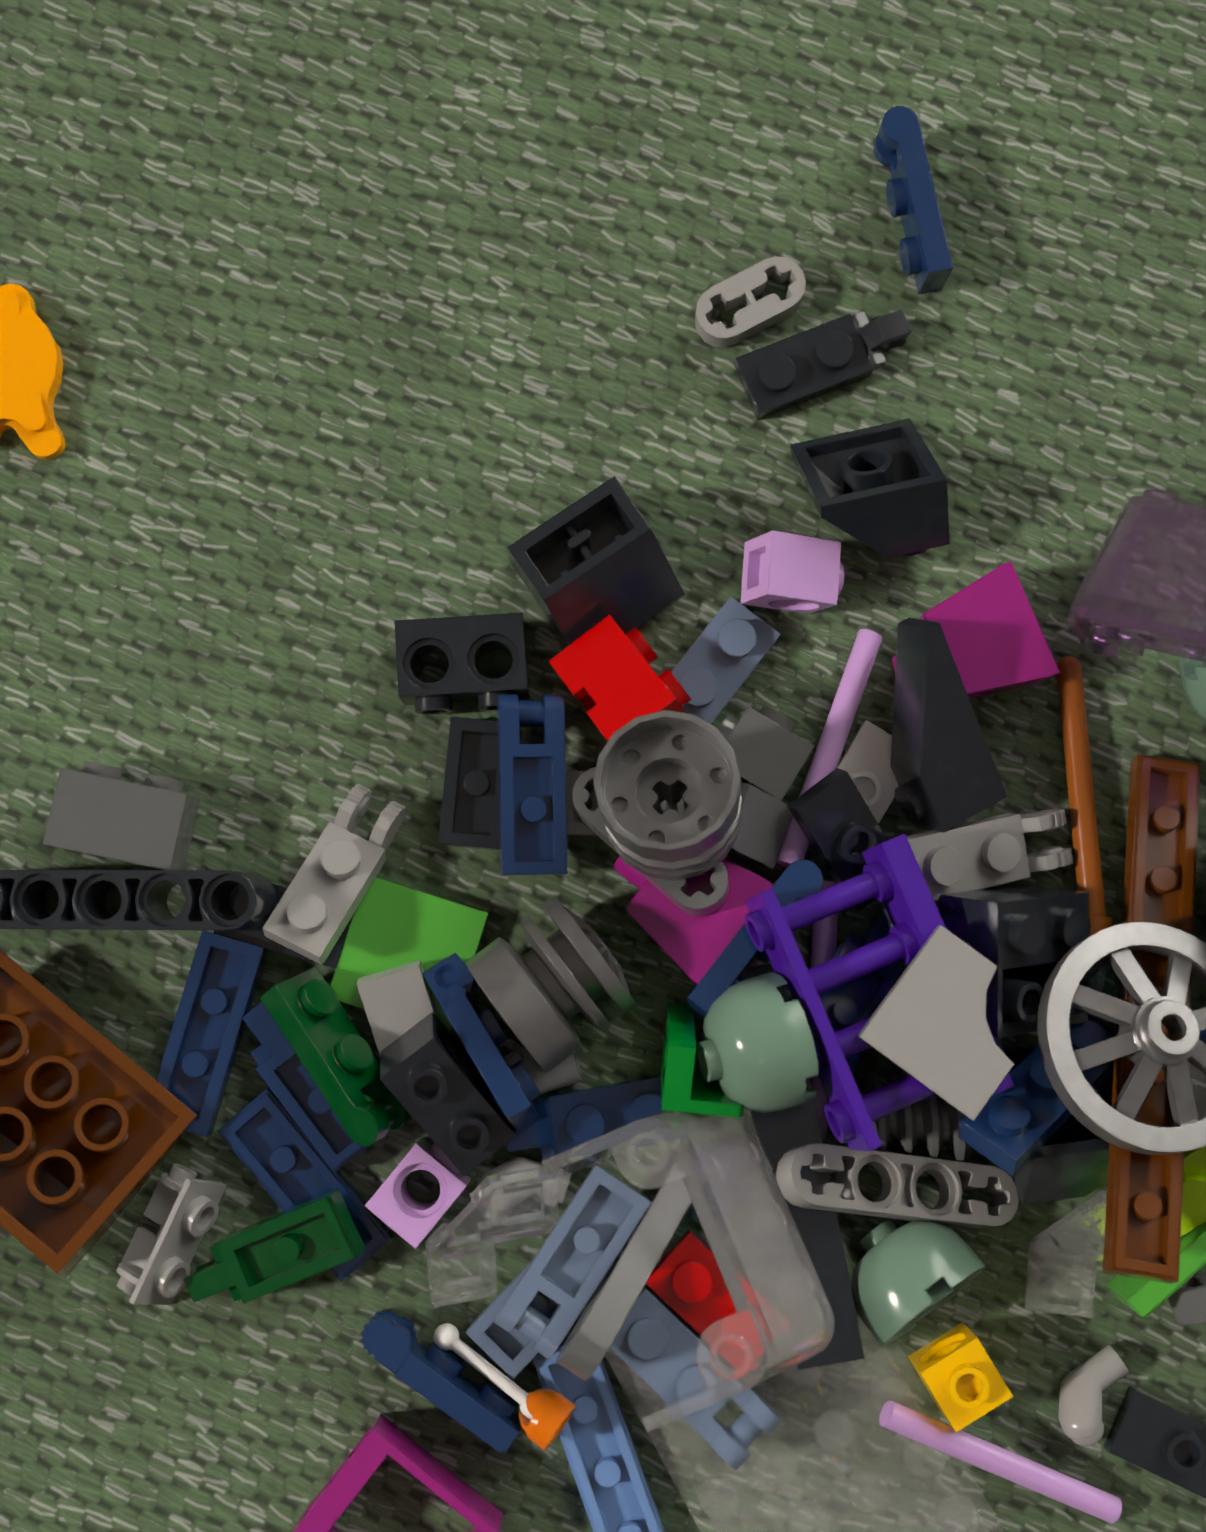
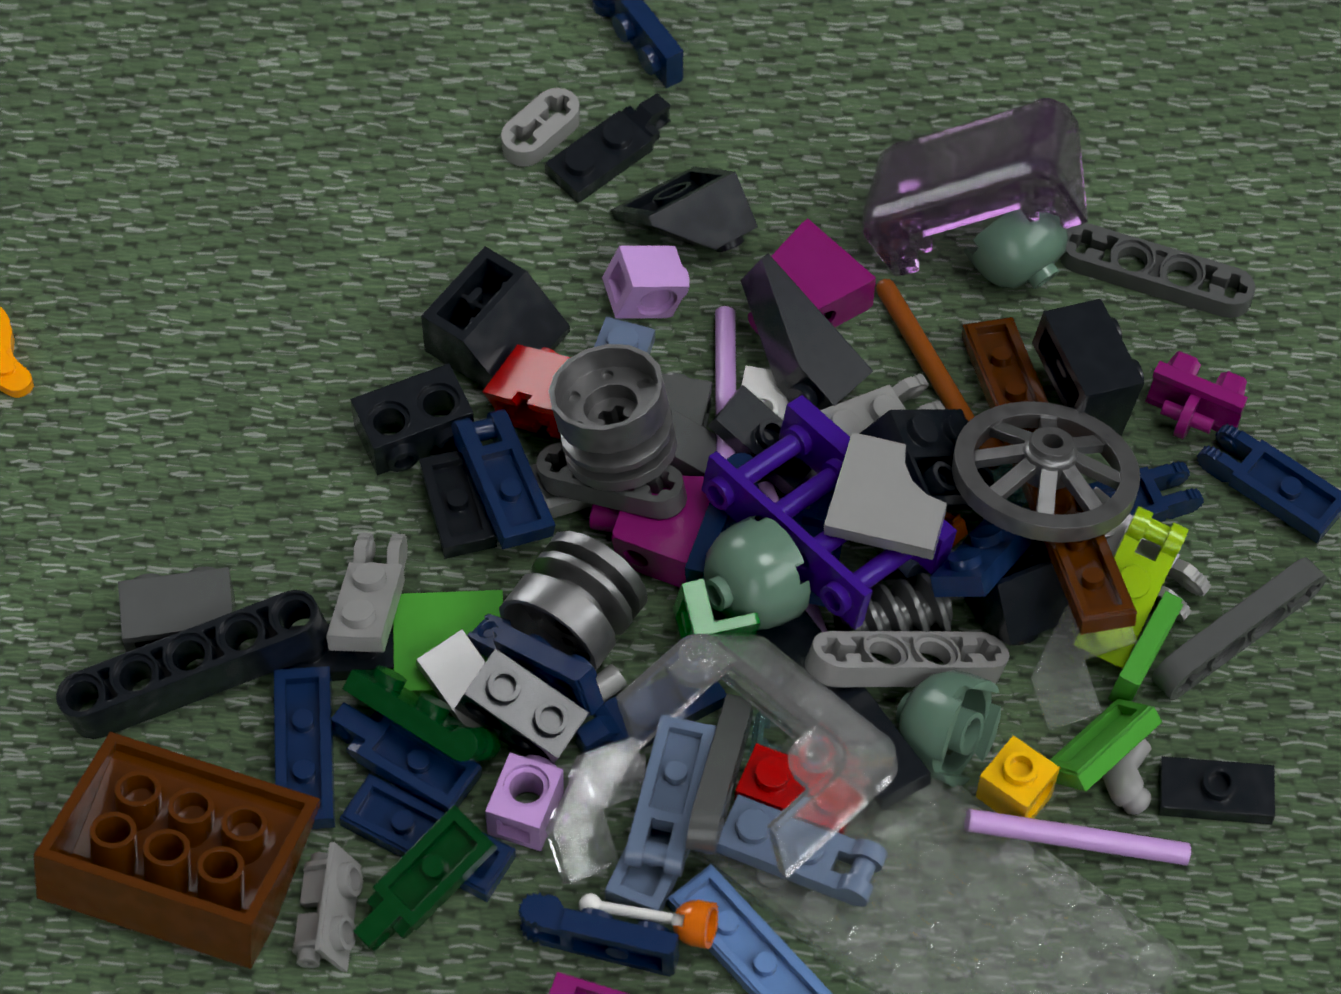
camera: 20 degrees left, 25 degrees down
(1076, 1356) = (1104, 743): none -> bright green tile

